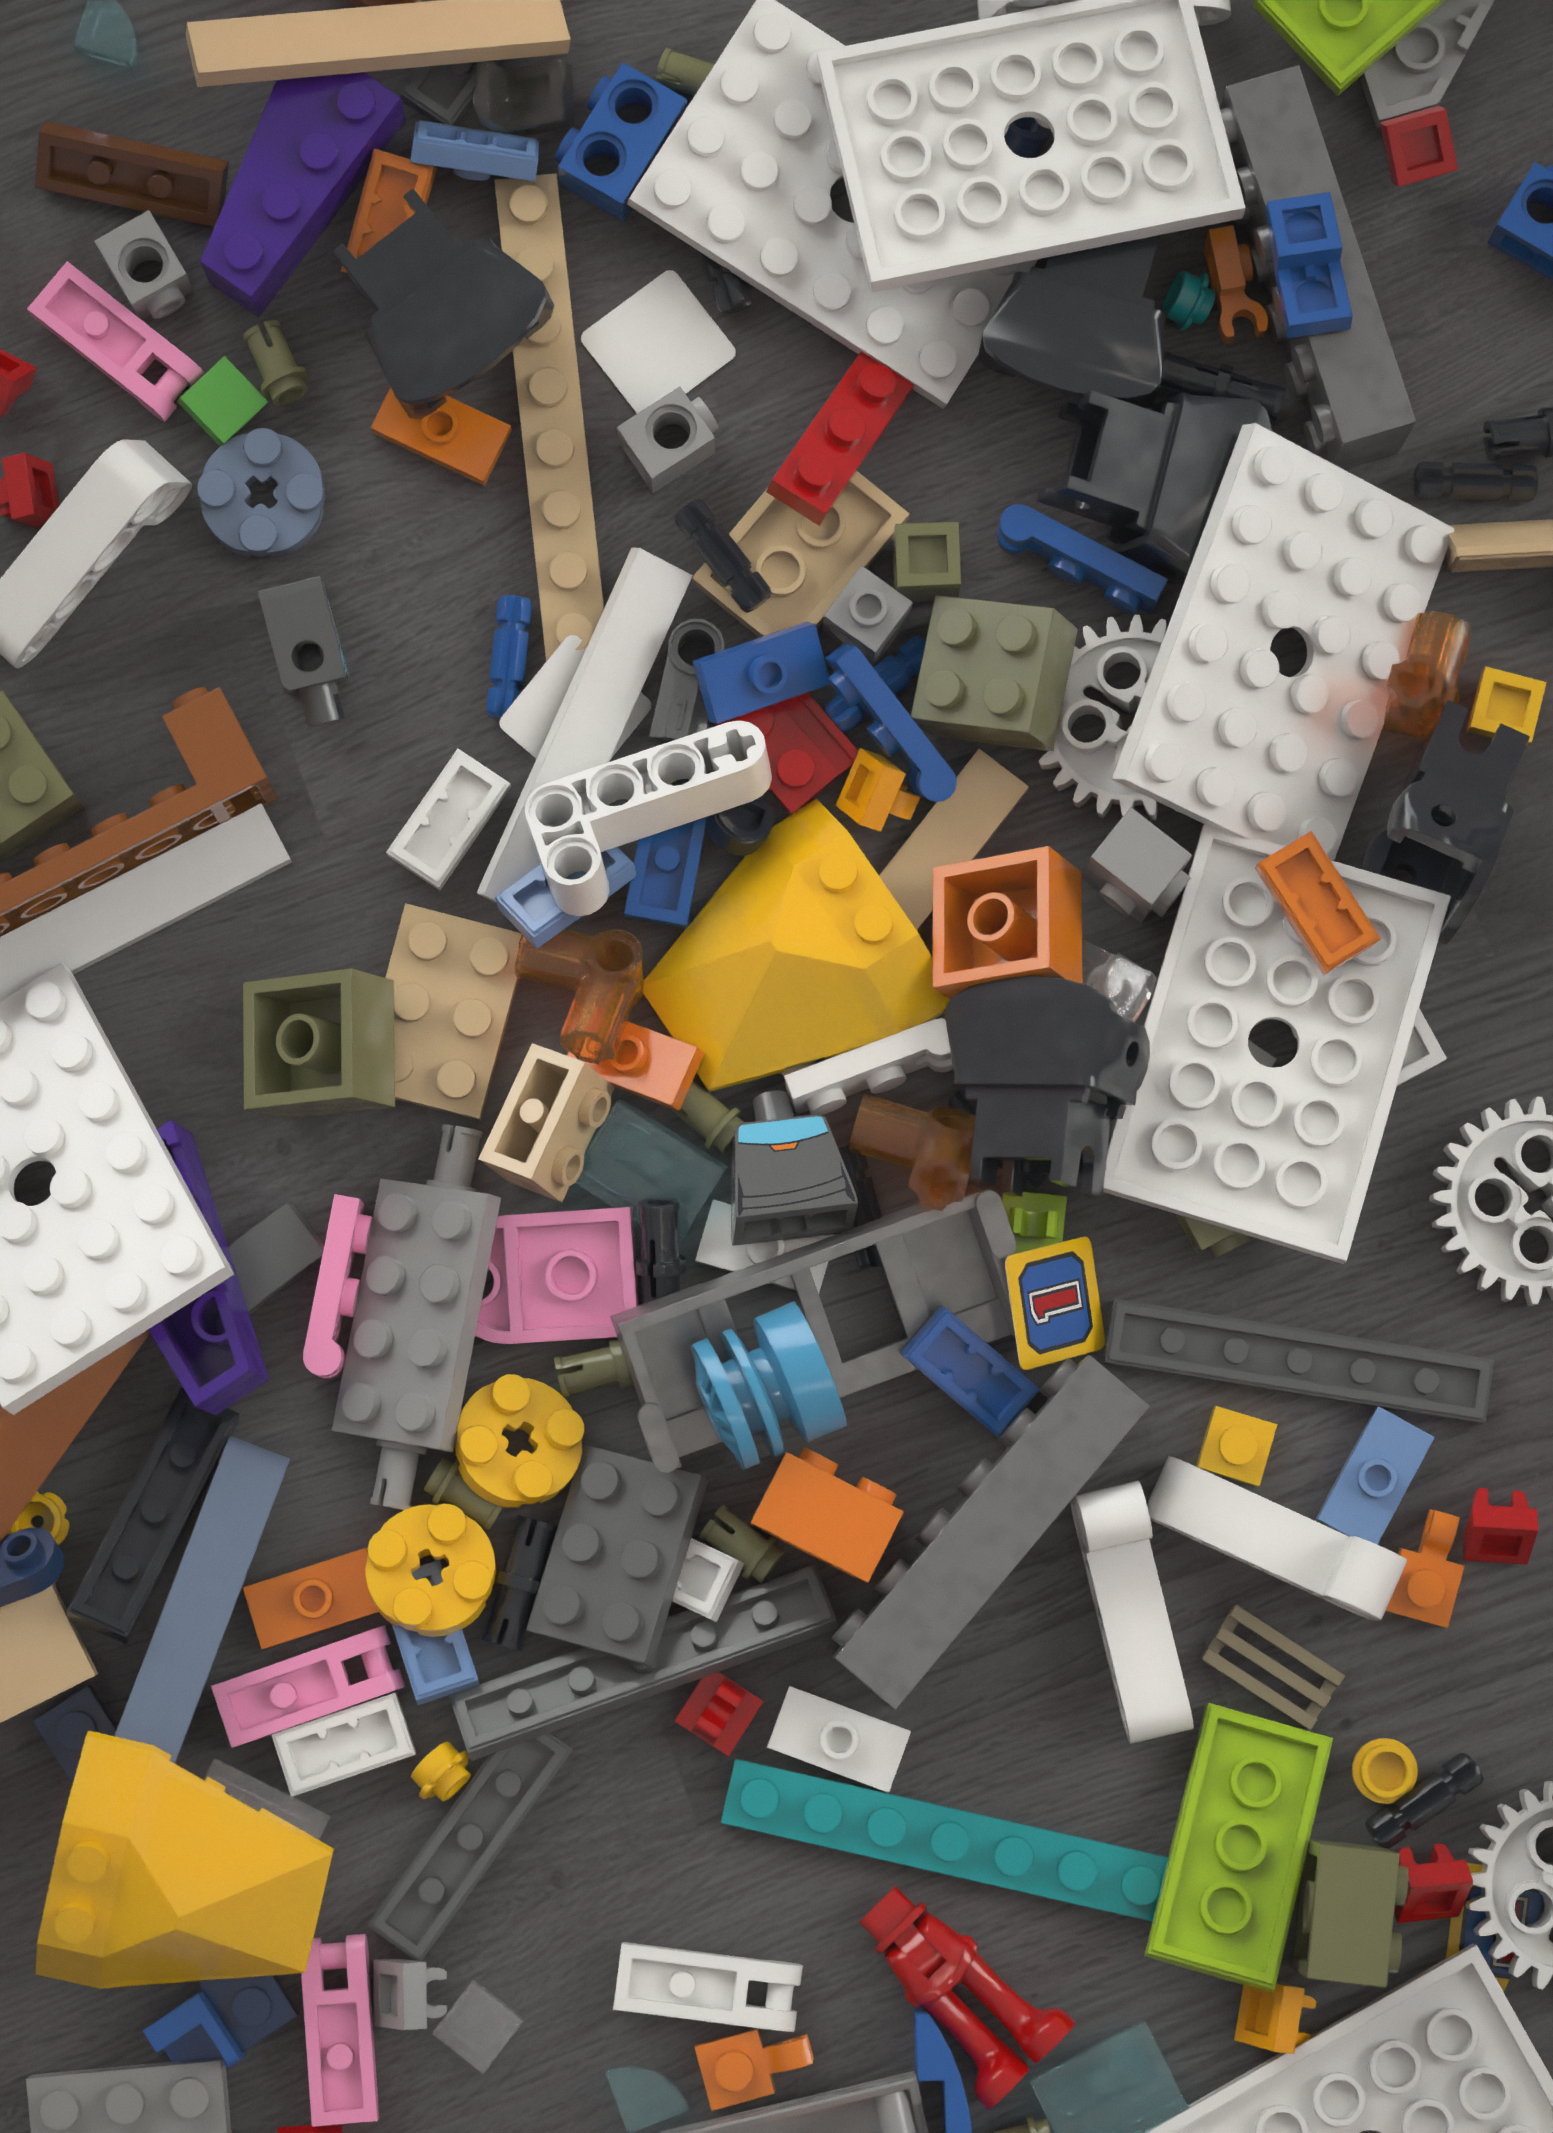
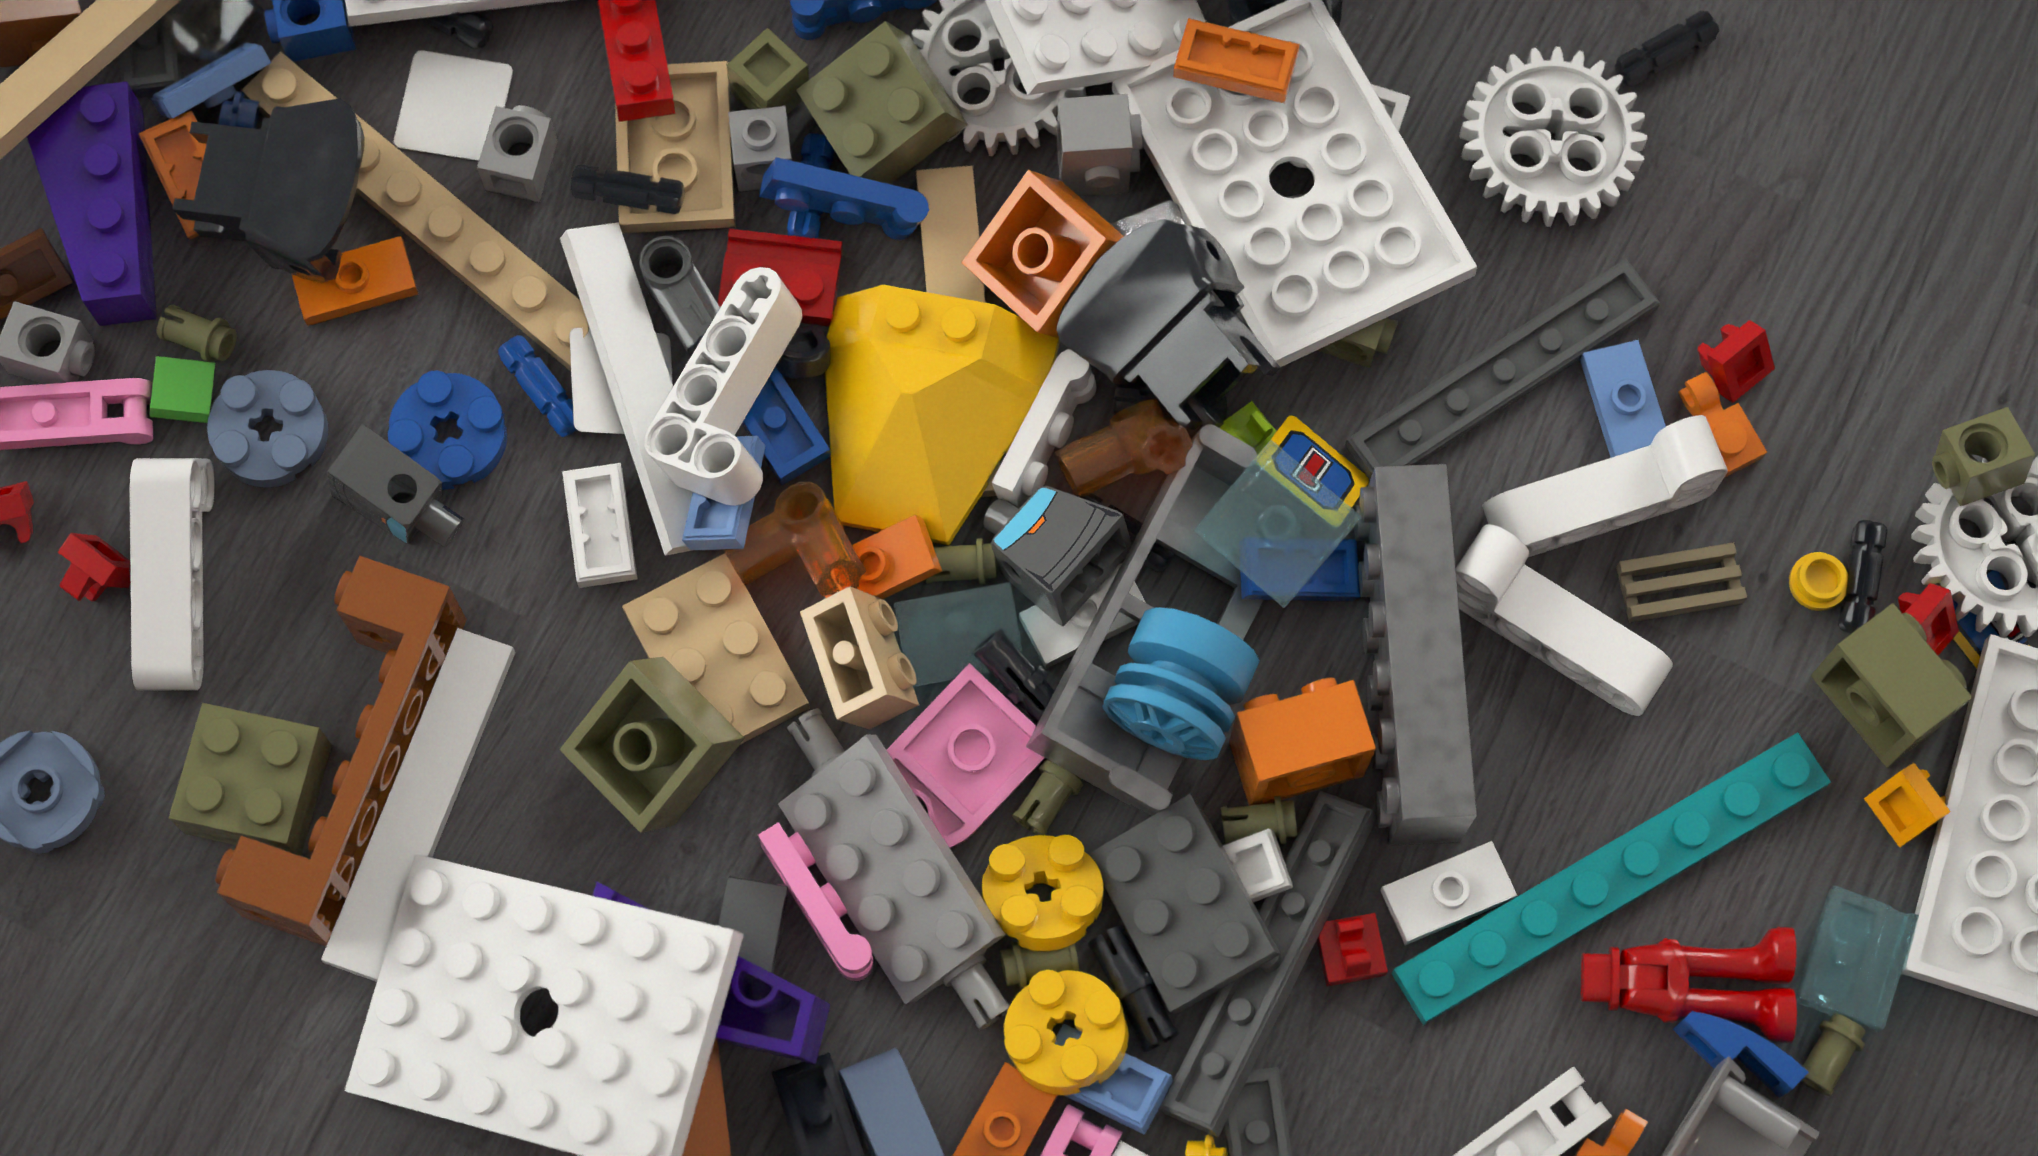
camera: 40 degrees left, 10 degrees down
(369, 609) = (442, 398): none -> blue plate
(468, 206) = (240, 112): none -> dark blue plate
(761, 672) = (725, 239): blue plate -> none
(874, 791) = (874, 253): light orange tile -> none
(974, 1324) = (1277, 523): none -> clear light blue plate
(1236, 1446) = (1516, 459): yellow plate -> none
(1239, 1847) = (1780, 714): lime tile -> none

